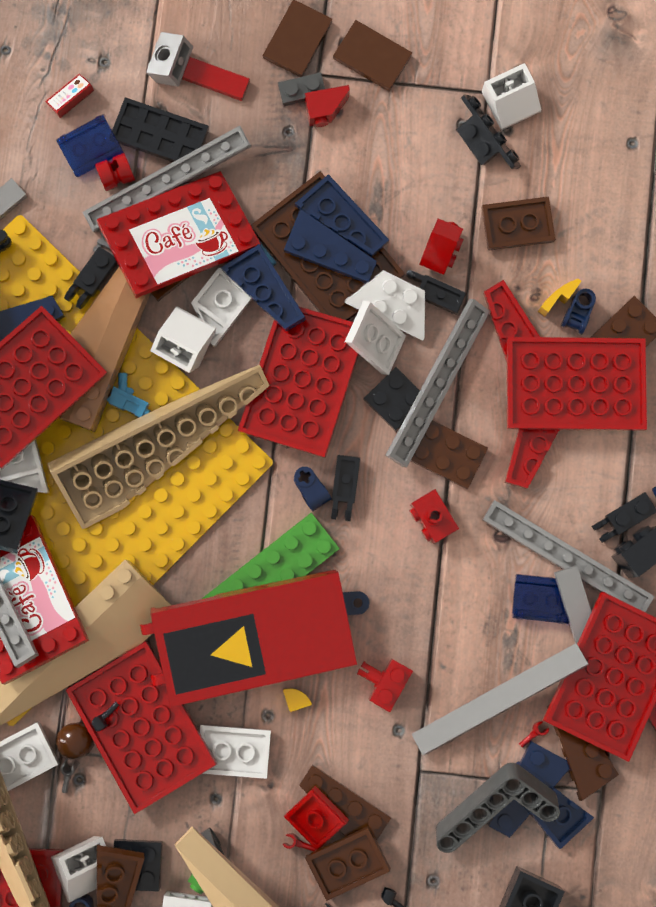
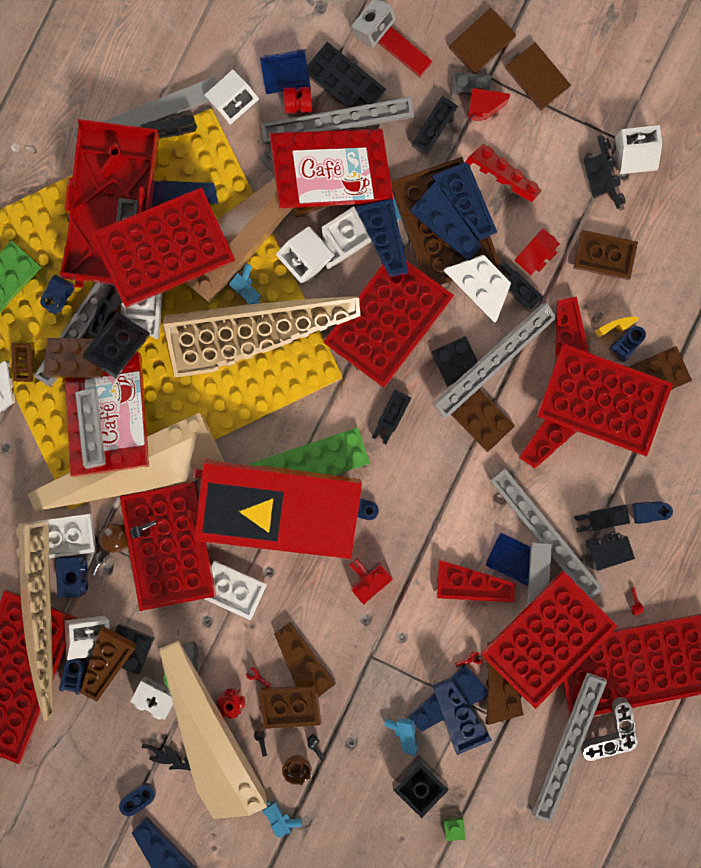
camera: 25 degrees right, 5 degrees up
(39, 194) = (231, 97): none -> white slope
(40, 817) = (65, 585): none -> dark blue brick
(70, 95) = (283, 25): slope -> none
(92, 276) = (250, 178): black hinge -> none
(277, 147) = (434, 125): none -> black plate
(281, 876) = (235, 698): none -> red brick
(296, 699) = (295, 567): yellow tile -> none
(313, 492) = (364, 411): dark blue piece -> none
(316, 818) = (278, 664): red plate -> none
(373, 172) = (504, 172): none -> red wing
(375, 338) = (457, 307): white plate -> none
(433, 516) = (452, 465): red brick -> none
(492, 843) = (406, 730): none -> dark azure piece
(500, 699) = (453, 625): light grey tile -> none
(502, 646) = (468, 584): none -> red wing
(504, 786) = (418, 699): dark grey beam -> none

